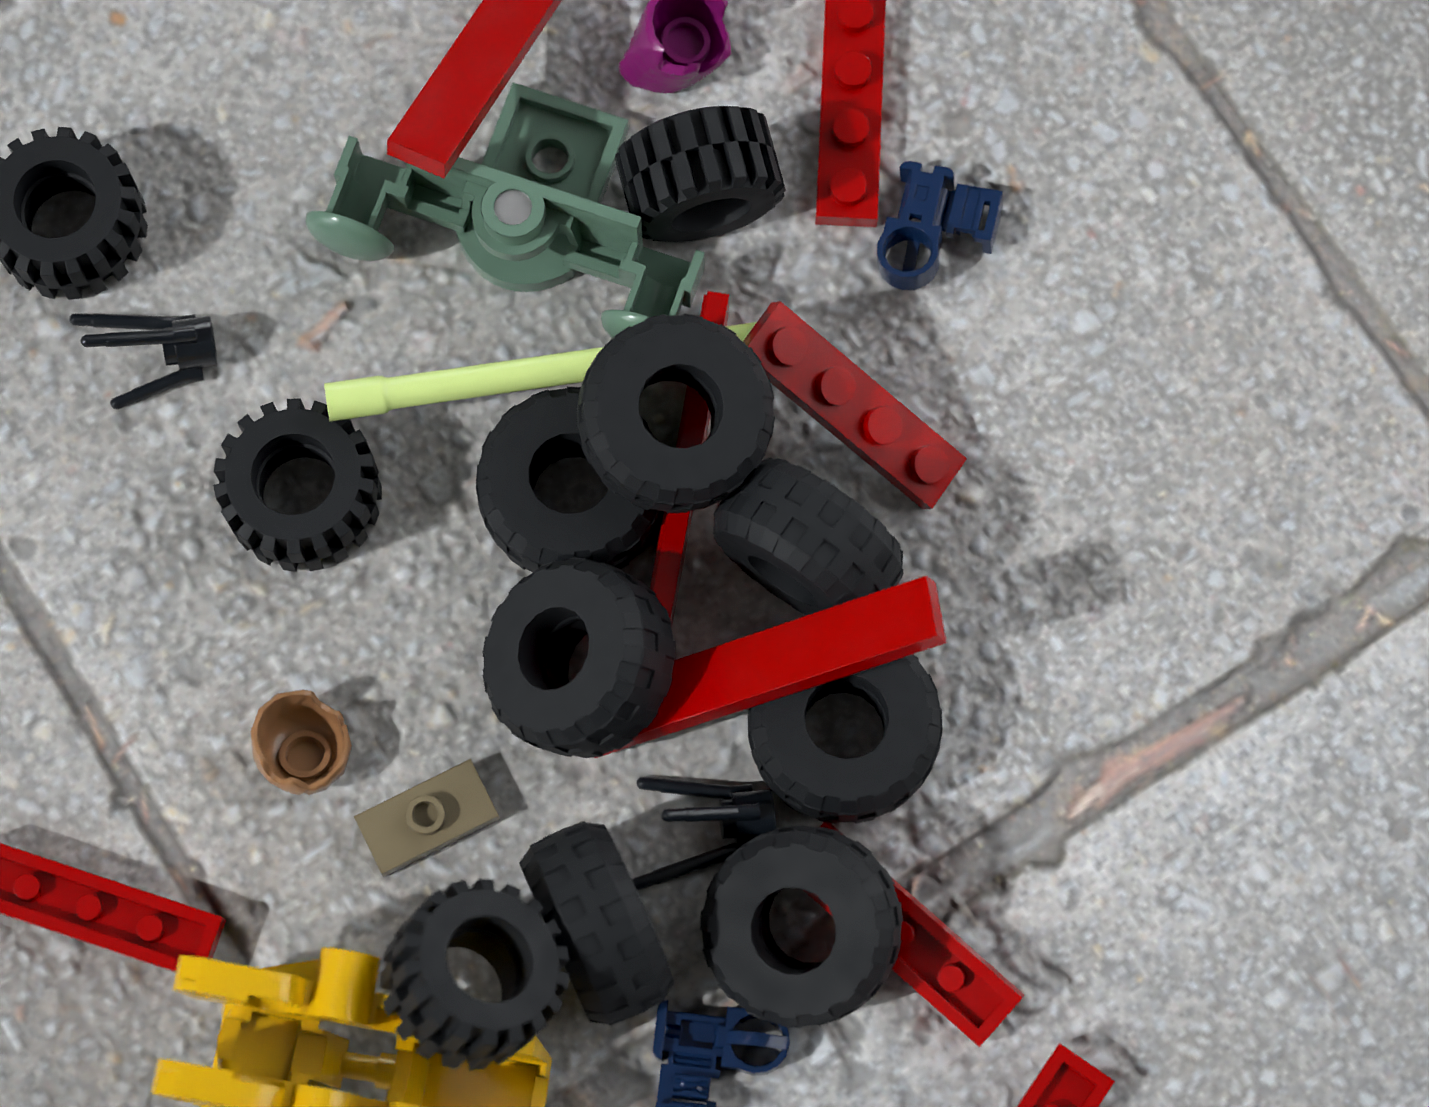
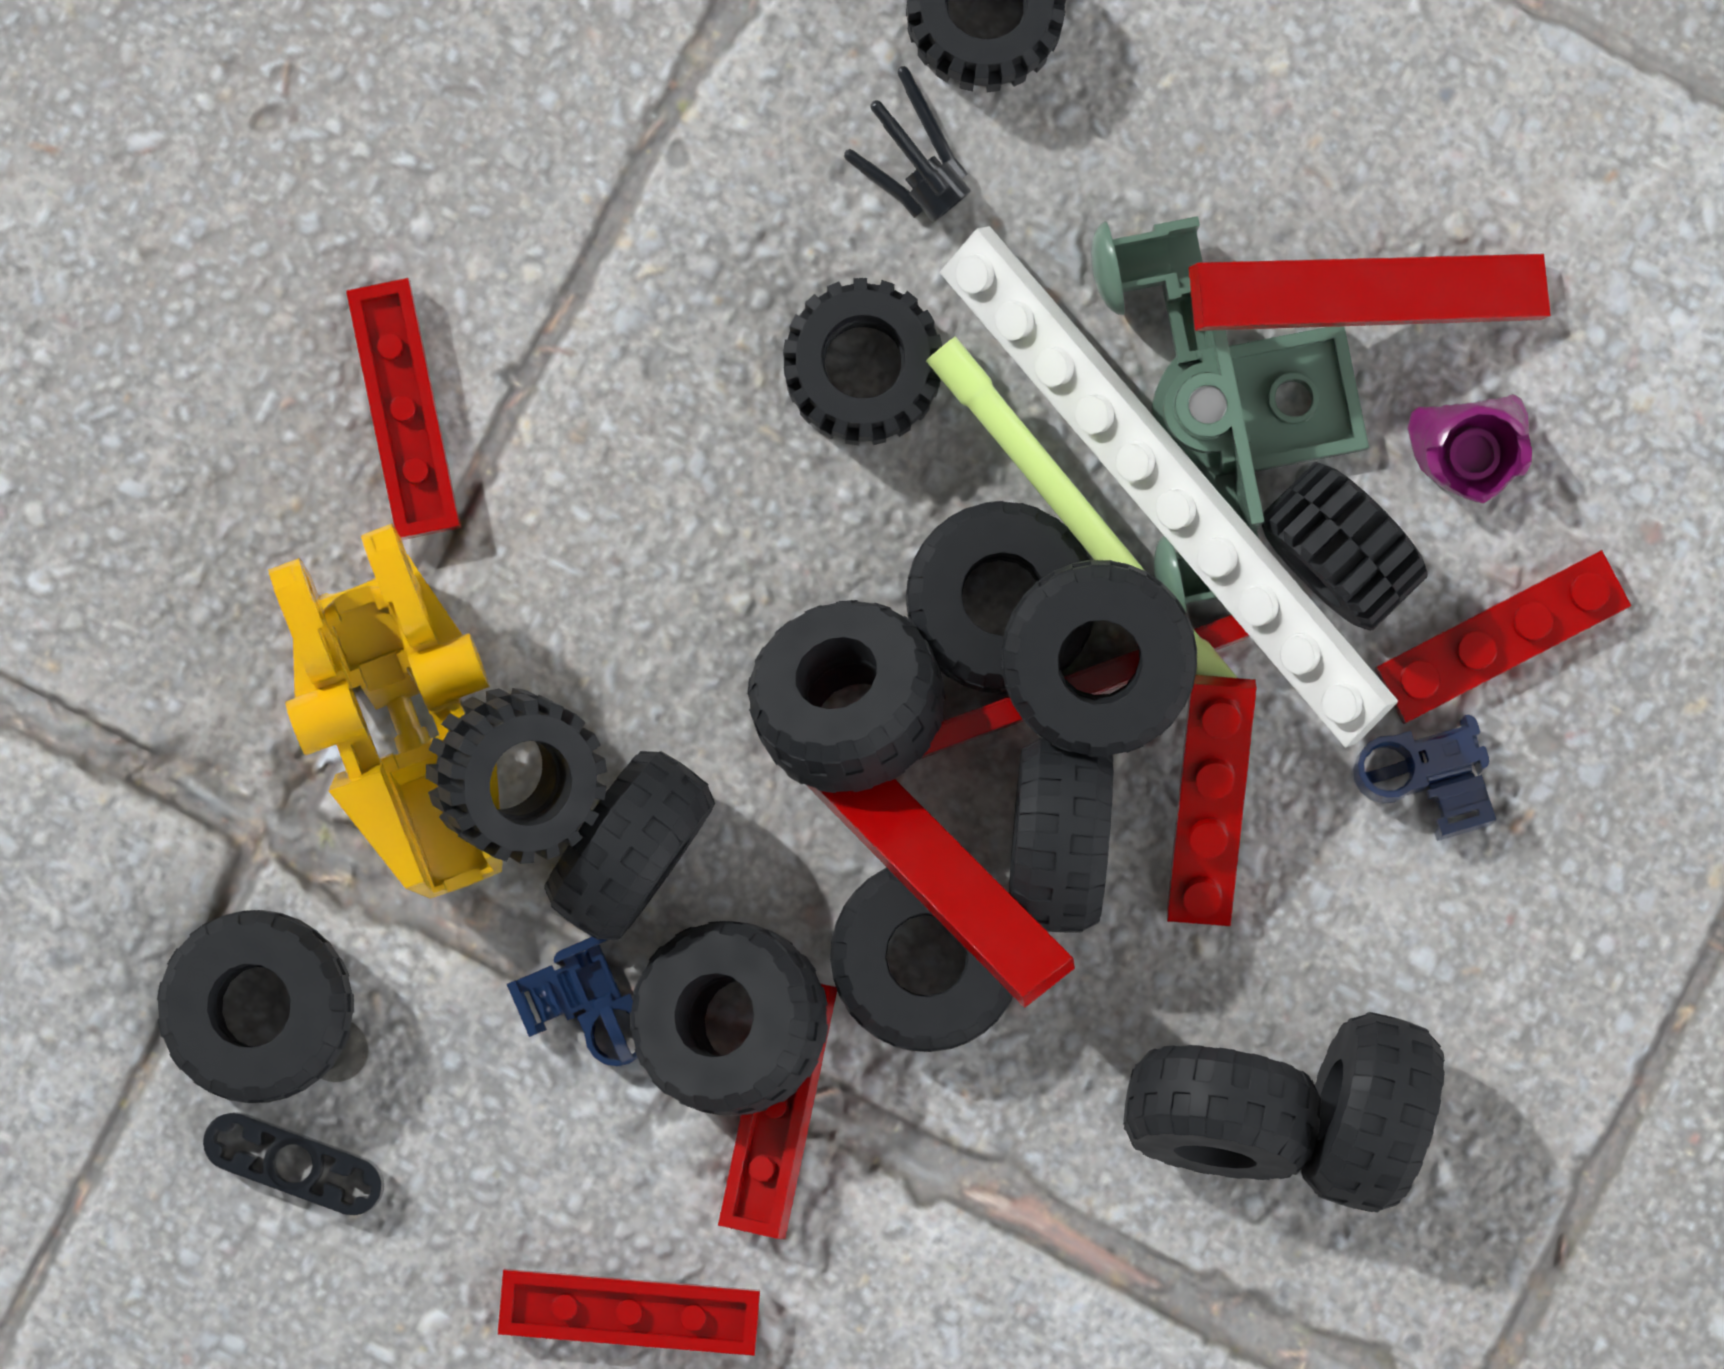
camera: 60 degrees right, 10 degrees up
(300, 742) = (642, 501): medium nougat hair -> none
(426, 817) = (644, 644): dark tan plate -> none
(563, 283) = (1169, 487): none -> white plate
(741, 816) = (799, 914): black plant -> none
(1128, 542) = (1222, 1112): none -> black tyre
(1199, 418) = (1376, 1111): none -> black tyre

